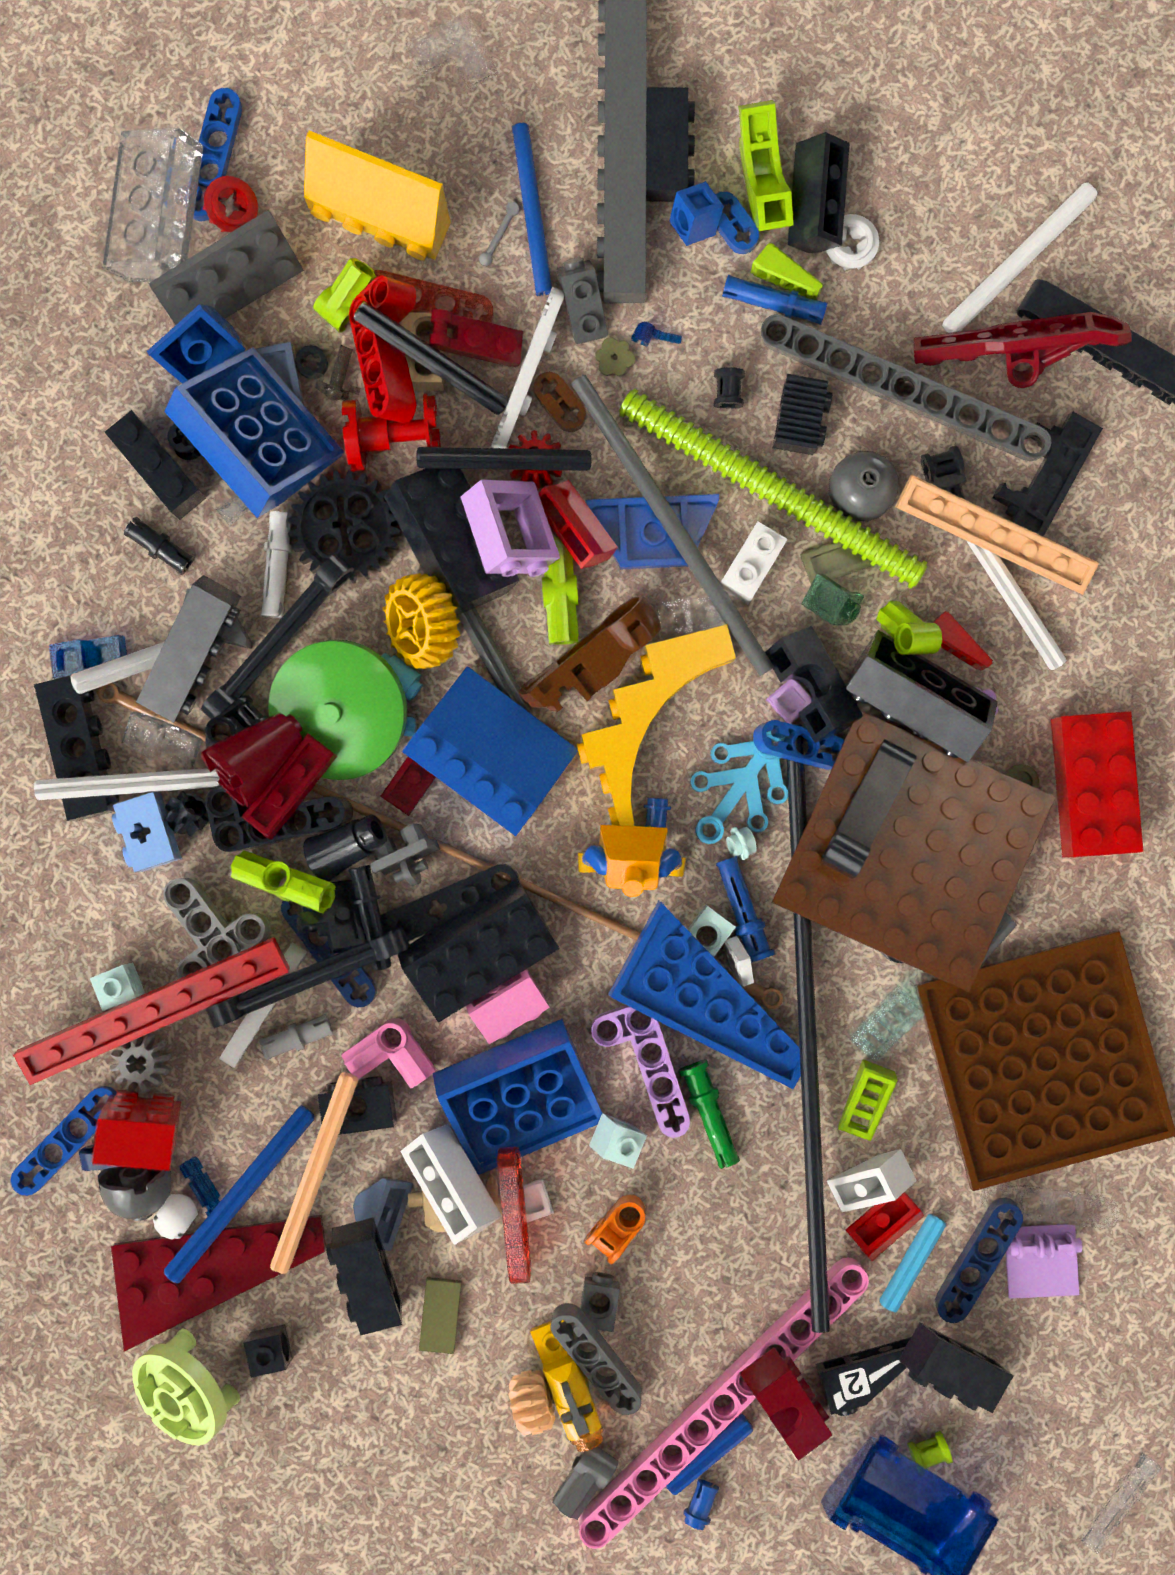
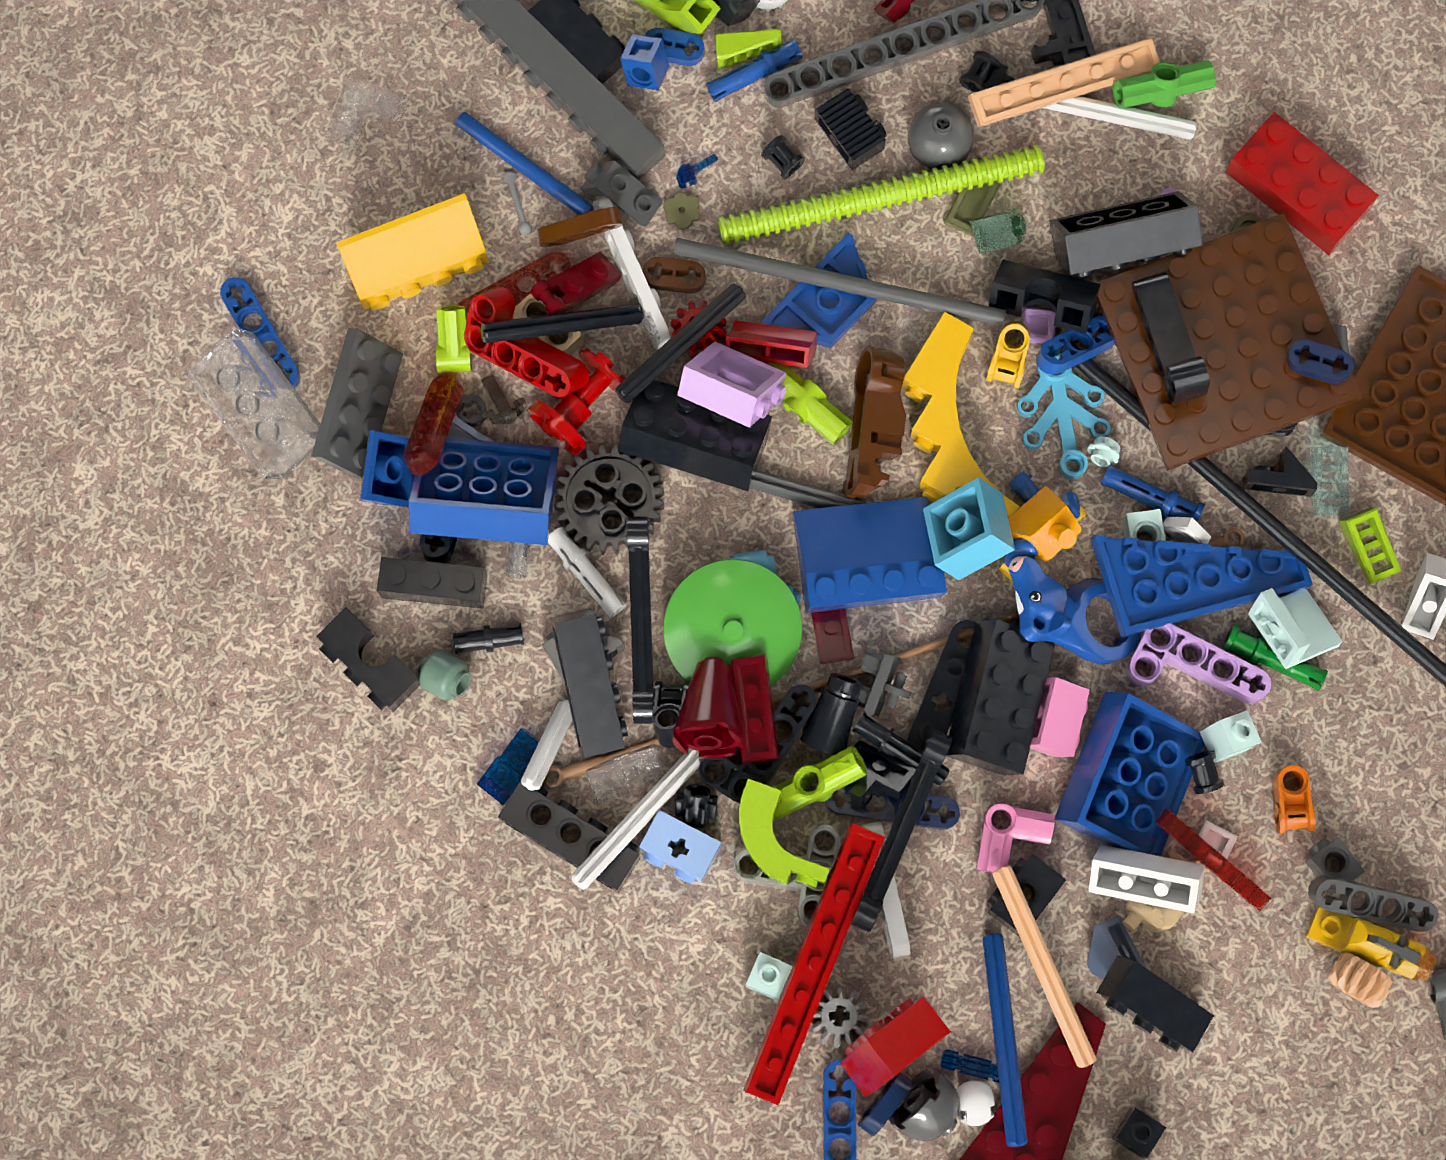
camera: 40 degrees left, 10 degrees down
(51, 450) = (345, 640): none -> black arch
(100, 542) = (444, 675): none -> sand green head
(197, 890) = (756, 827): none -> lime arch
(233, 355) = (433, 419): none -> clear red beam
(243, 198) = (313, 345): red gear -> none
(296, 1037) = (931, 889): light grey pin -> none
(421, 620) = (732, 508): yellow gear -> none
(440, 1315) = (1233, 989): olive tile -> none
(520, 297) = (580, 227): none -> reddish brown beam
(574, 1146) = (1204, 772): none -> black bush
(575, 806) = (968, 529): none -> medium azure brick
(578, 933) = (1059, 614): none -> blue animal
(741, 705) = (1009, 357): none -> yellow piece
(746, 1107) = (1293, 626): none -> light aqua bracket
(753, 562) = (919, 255): white brick -> none
(858, 995) = (1290, 480): none -> black slope
(908, 631) = (1071, 199): lime piece -> none
(960, 643) = (1108, 178): red slope -> none
(970, 933) = (1322, 354): none -> dark blue beam
(1071, 608) = (1164, 84): none -> bright green piece

